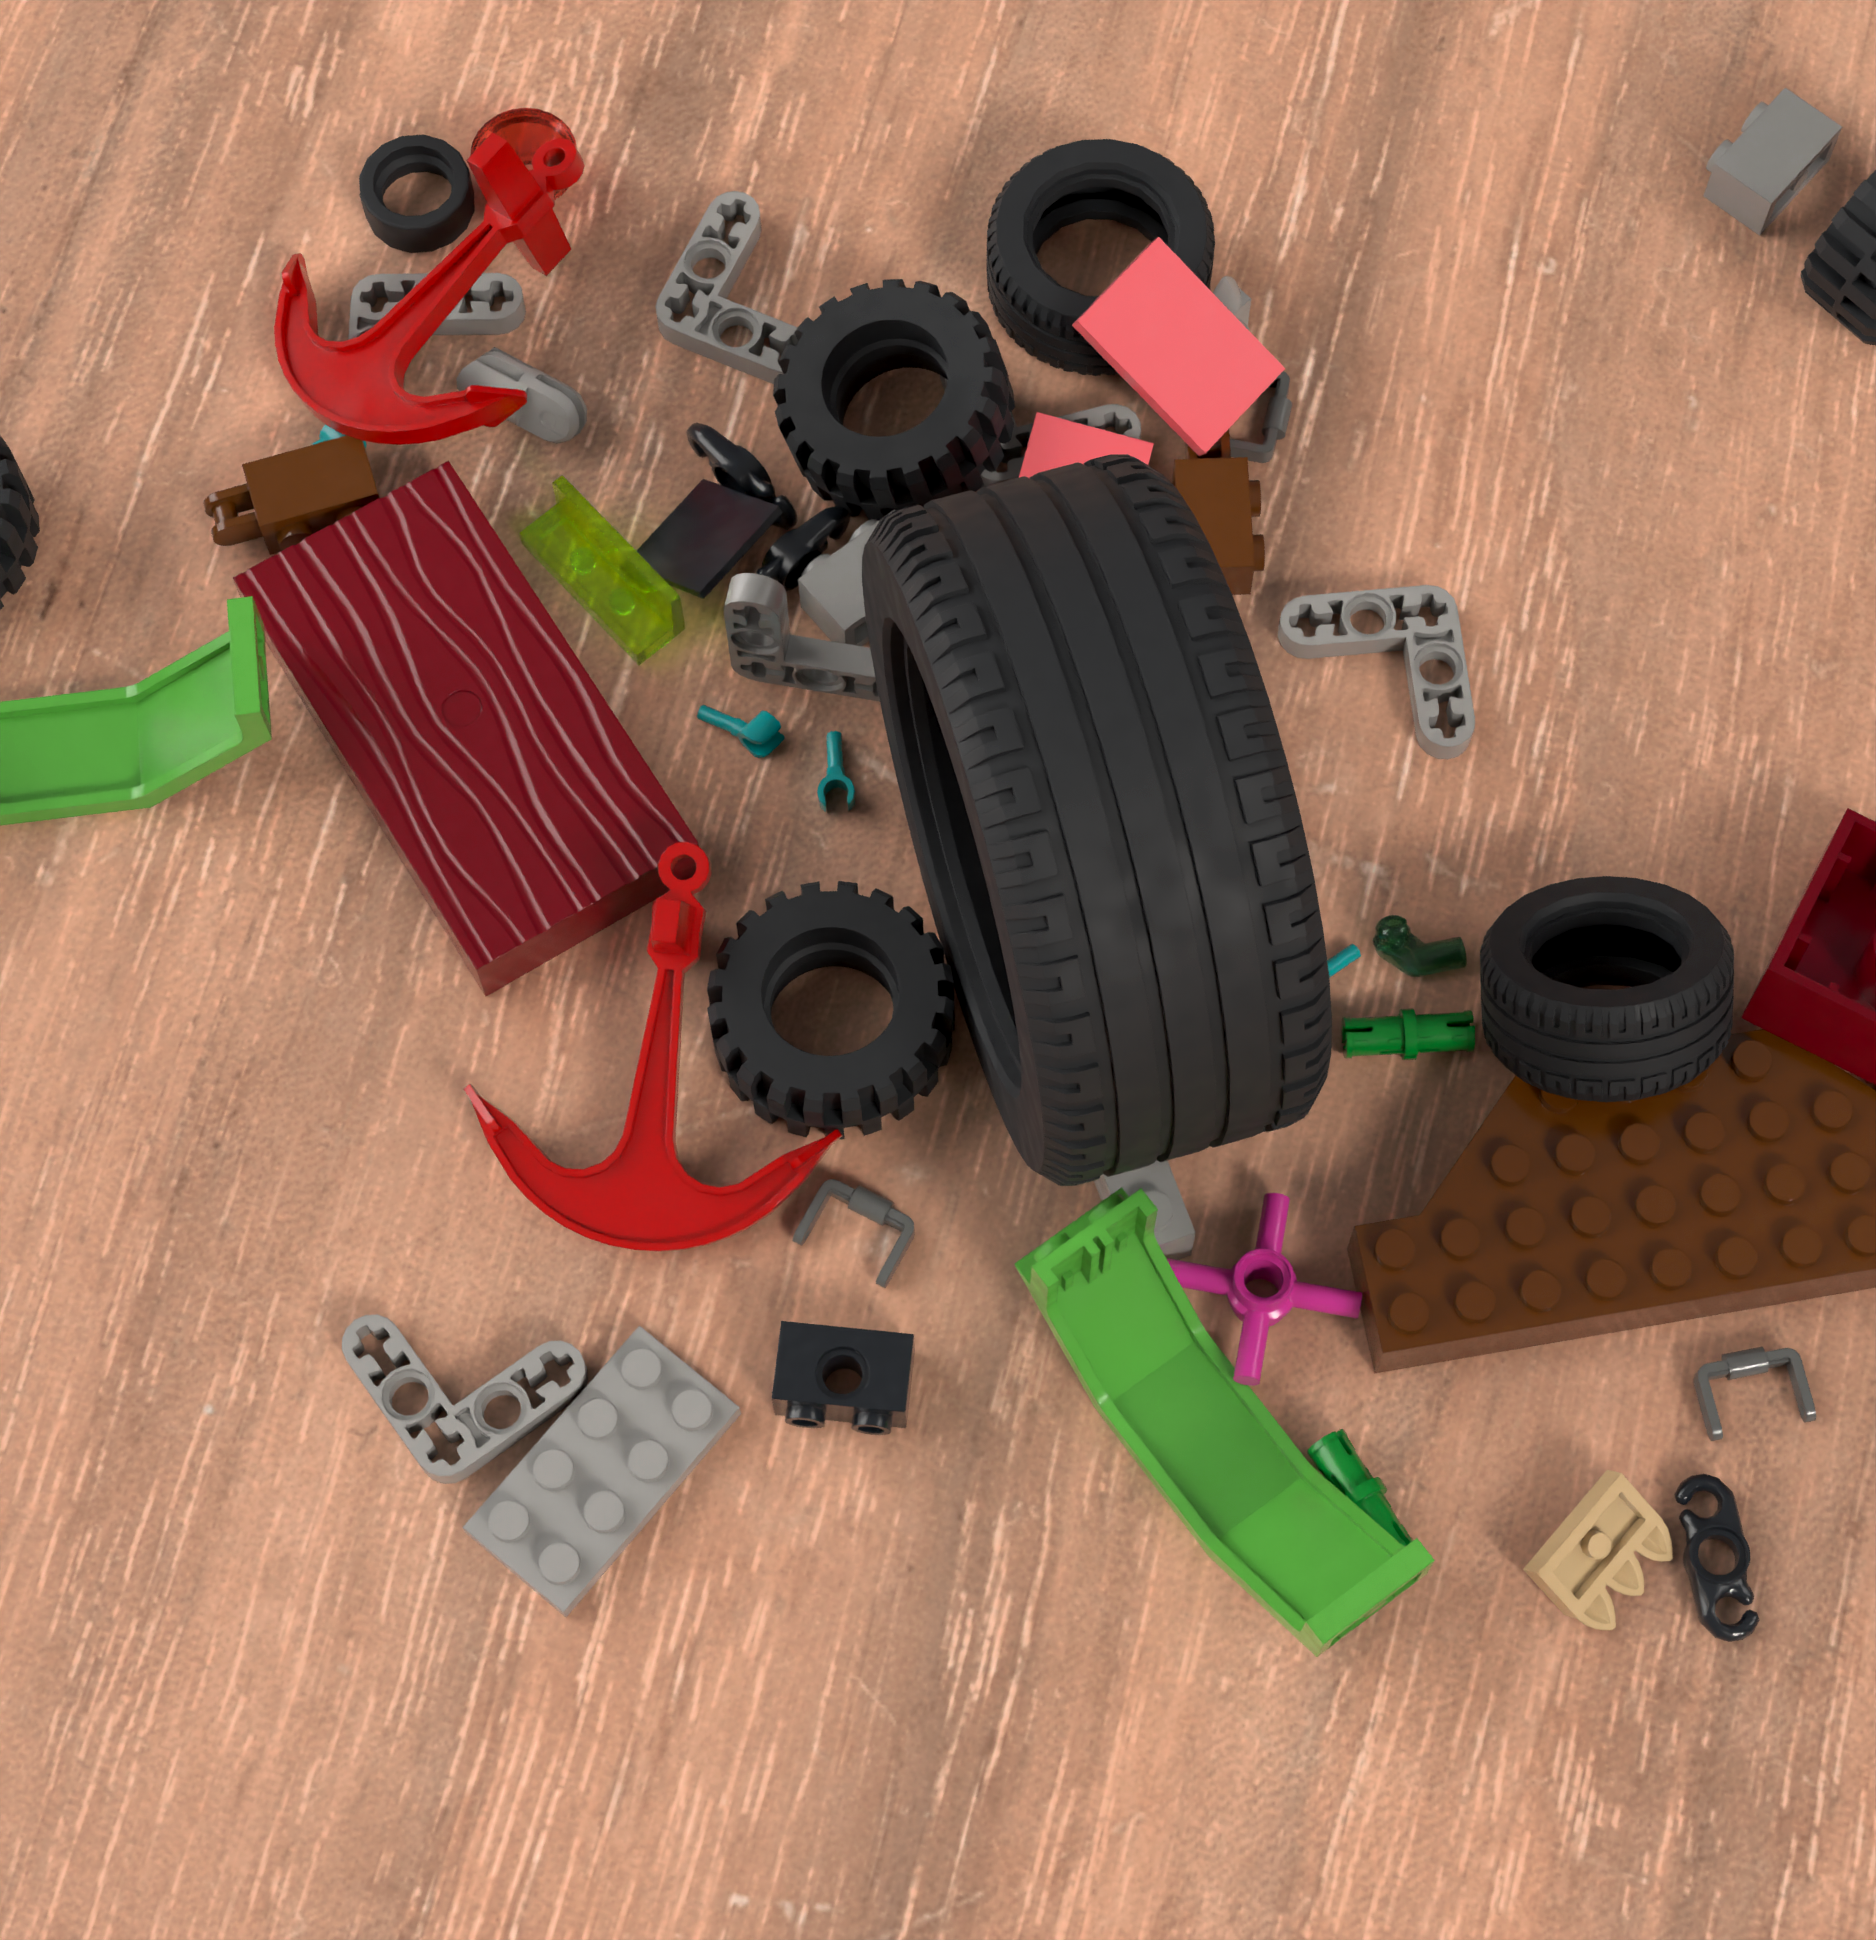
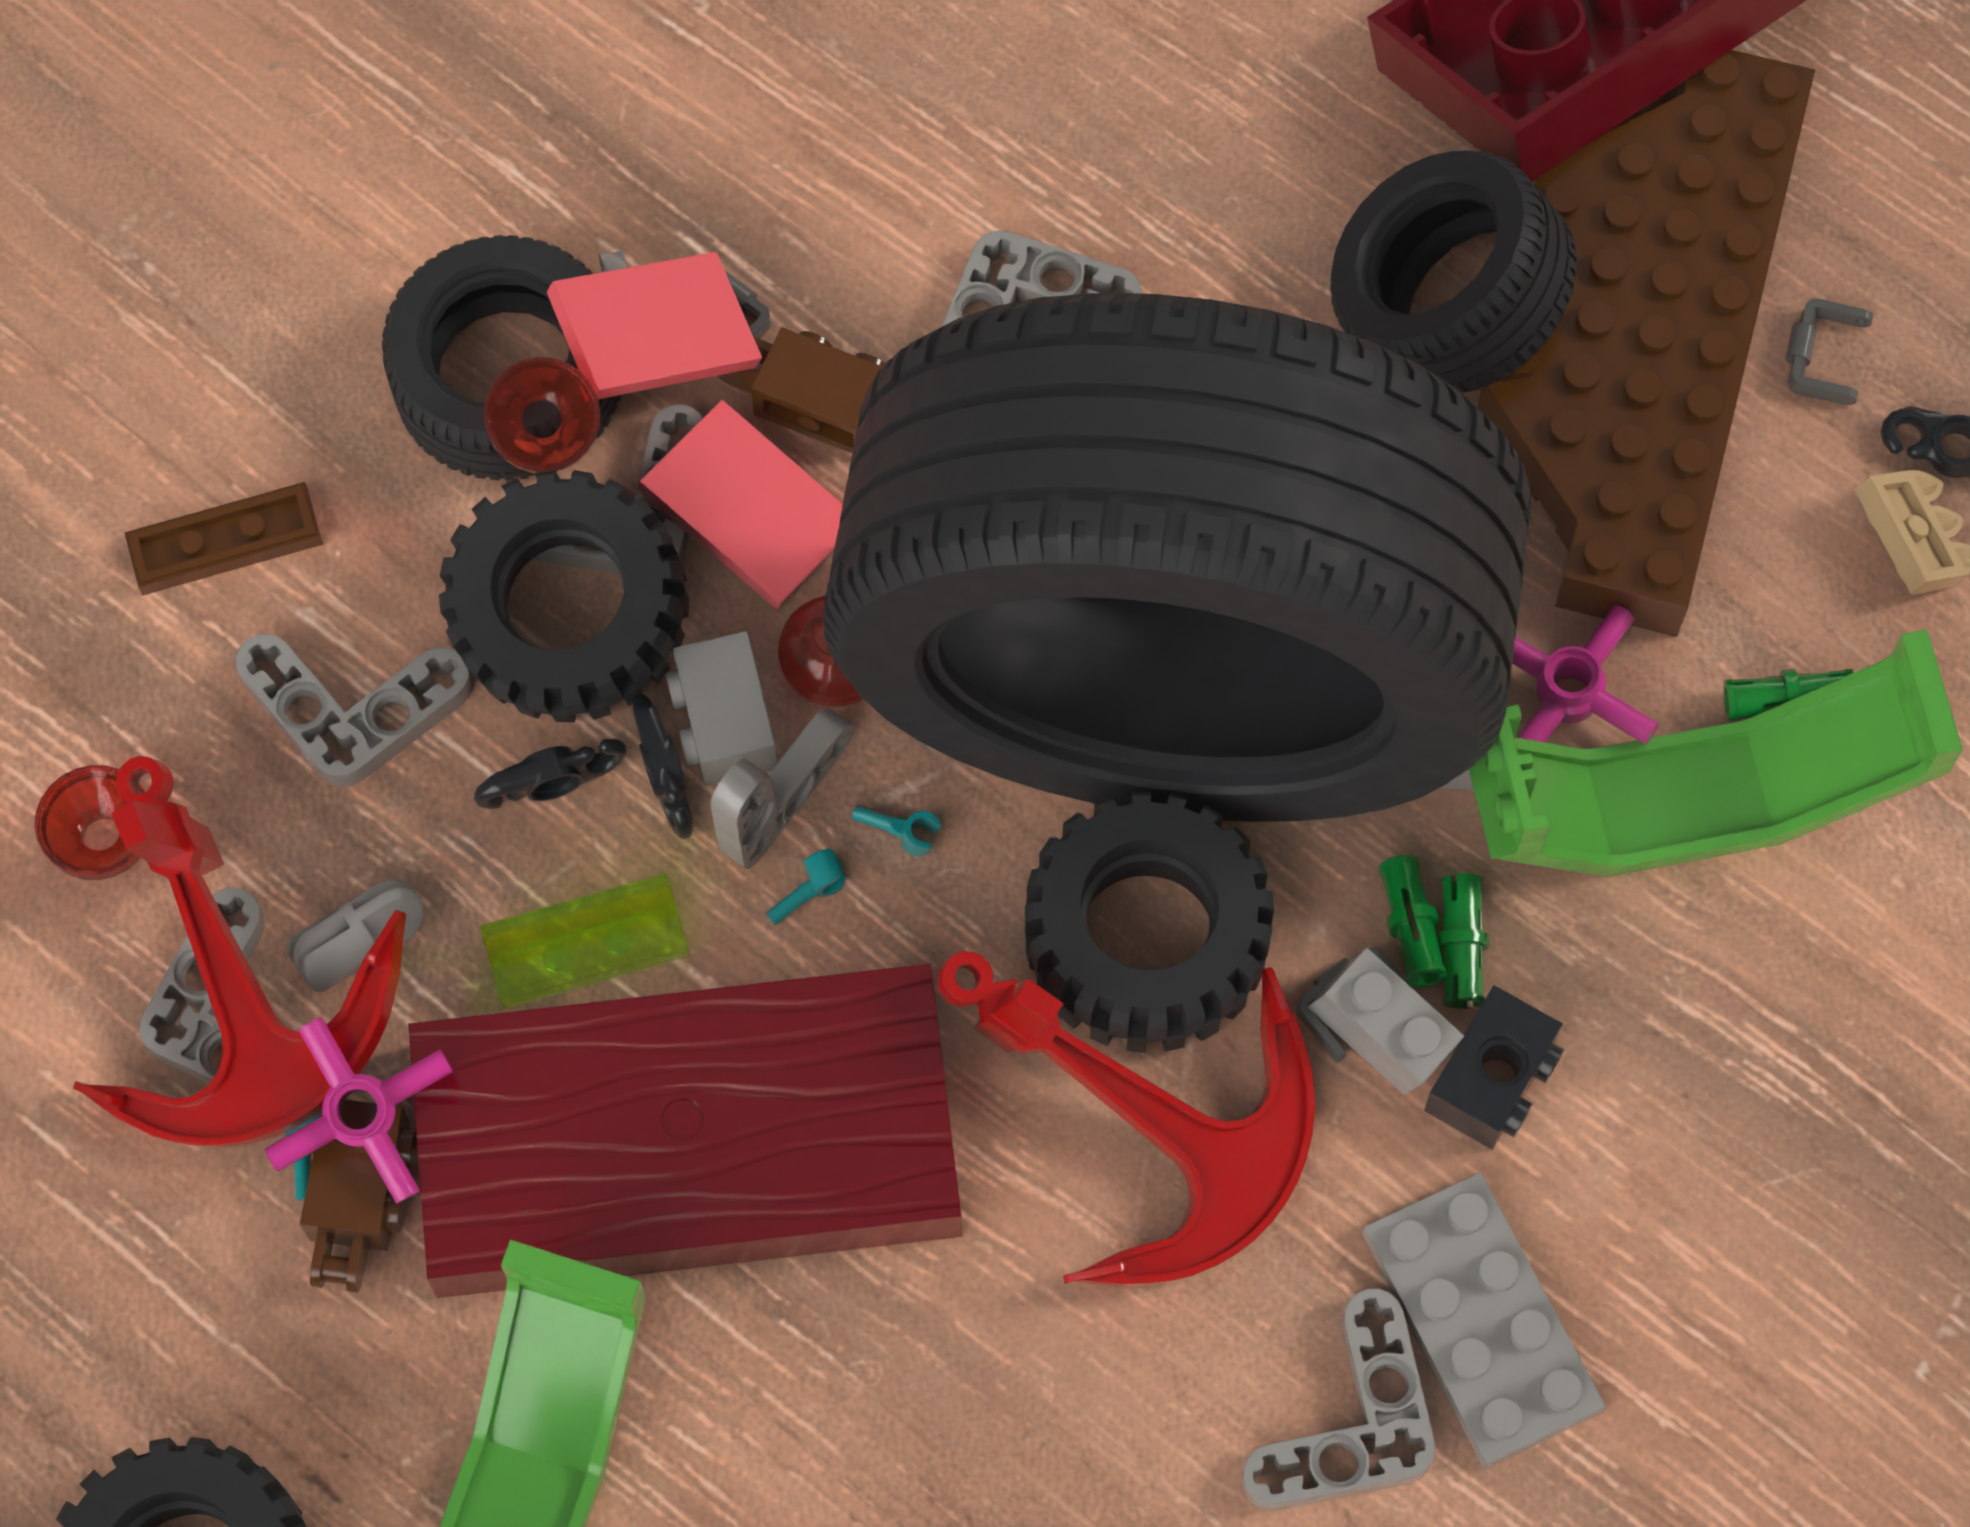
camera: 65 degrees left, 0 degrees up
(331, 438) = (374, 1136): none -> dark pink bar
(415, 155) = (51, 900): black tyre -> none
(707, 536) = (602, 828): black piece -> none
(834, 138) = (223, 538): none -> reddish brown tile
(836, 1255) = (1386, 1021): none -> light grey brick
(954, 1245) = (1420, 957): none -> green pin
(959, 1298) = (1463, 940): none -> green pin
(1012, 266) = (550, 382): none -> clear red piece

